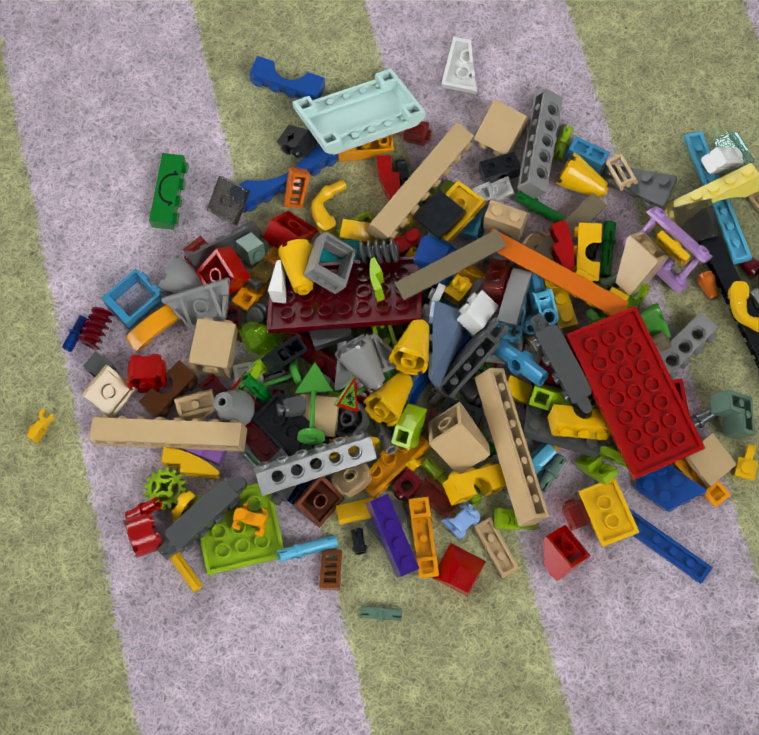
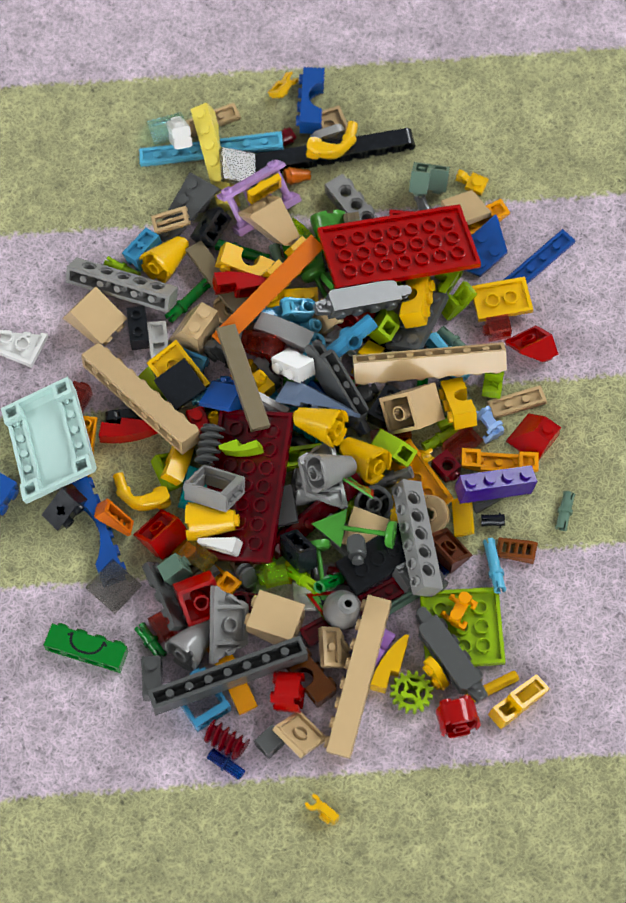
camera: 85 degrees left, 5 degrees down
(146, 252) = (151, 674): none -> dark grey brick
(148, 313) = (227, 675): none -> dark grey brick
(148, 507) = (431, 713): red pin -> none
(171, 594) = (518, 701): none -> yellow slope
(178, 249) = (150, 640): none -> green pin
(624, 212) = (211, 227): none -> black brick

